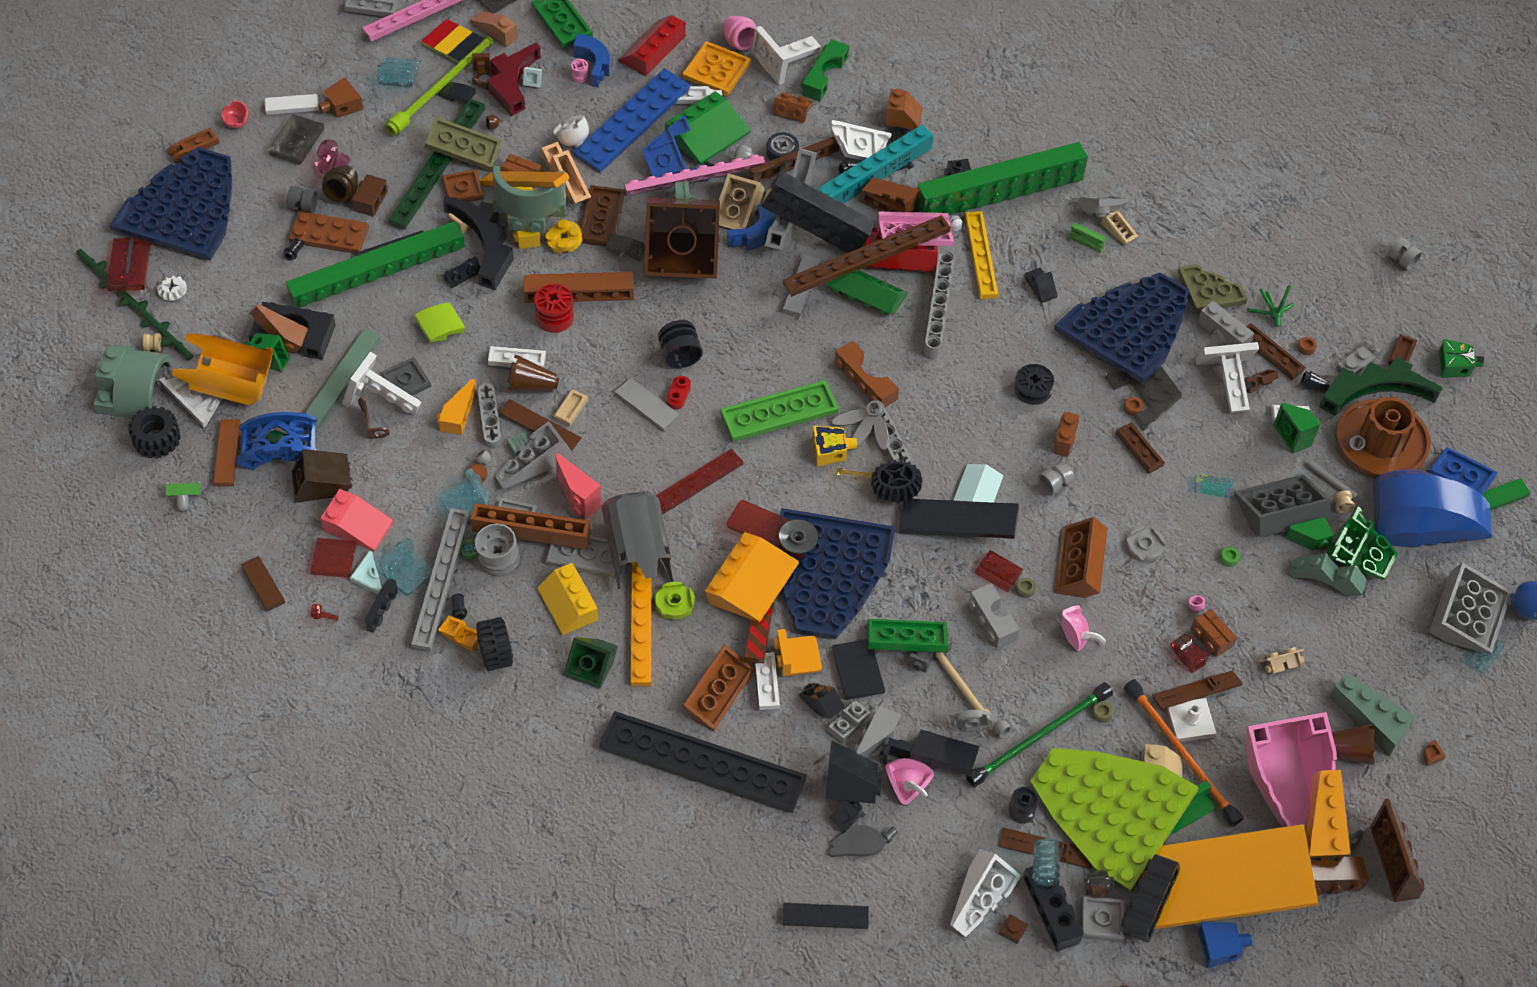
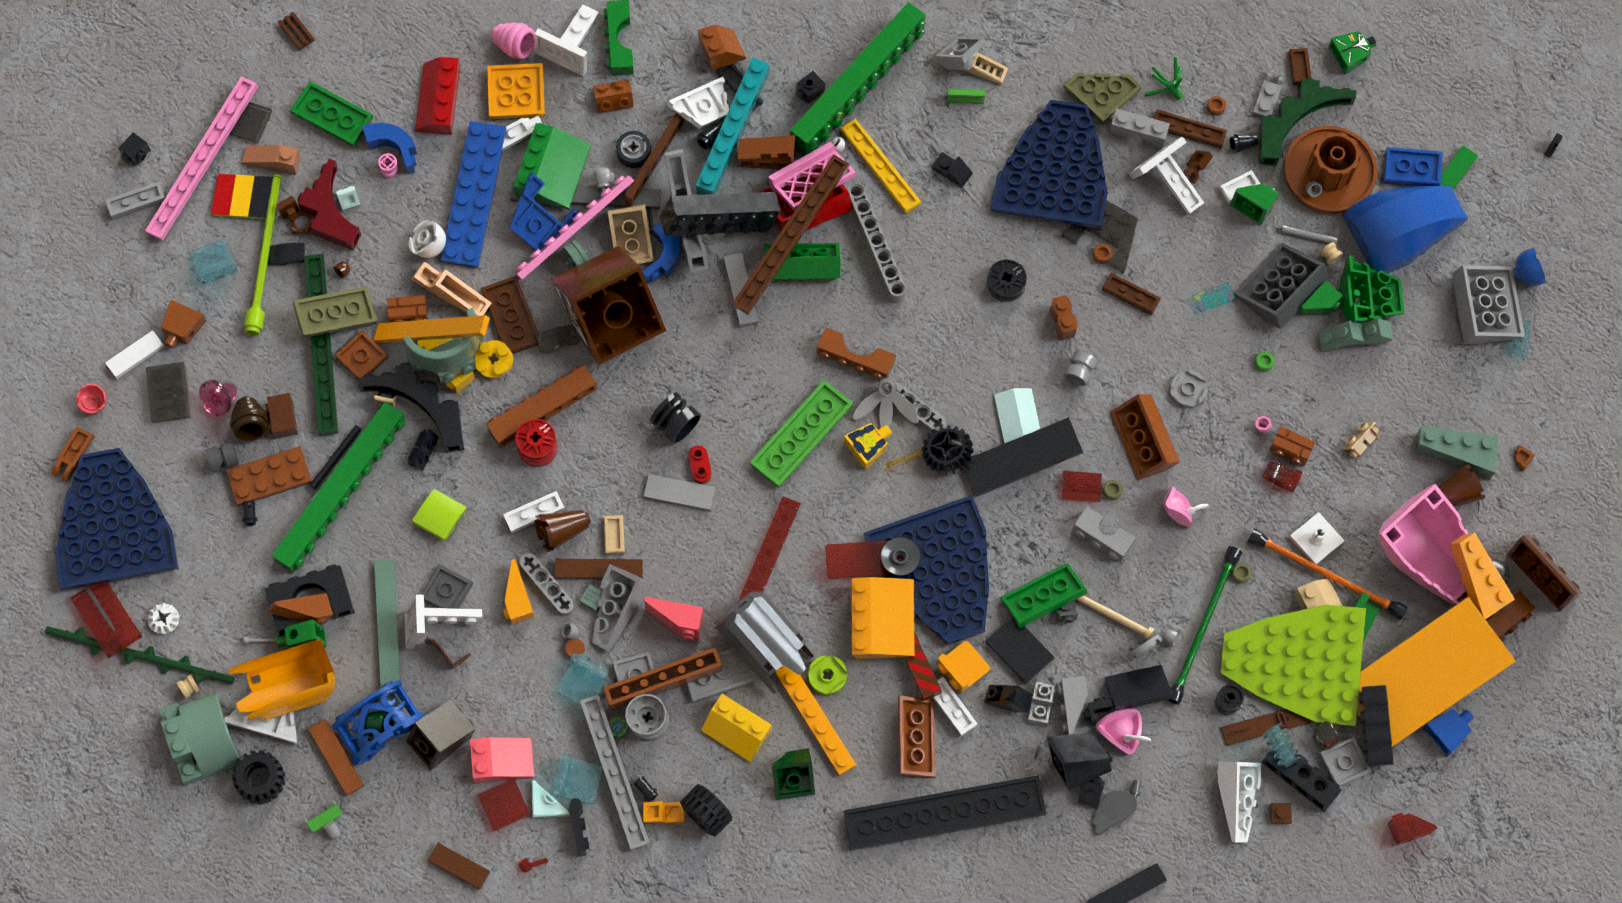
camera: 30 degrees left, 15 degrees up
(1197, 689) = (1307, 507): reddish brown piece -> none

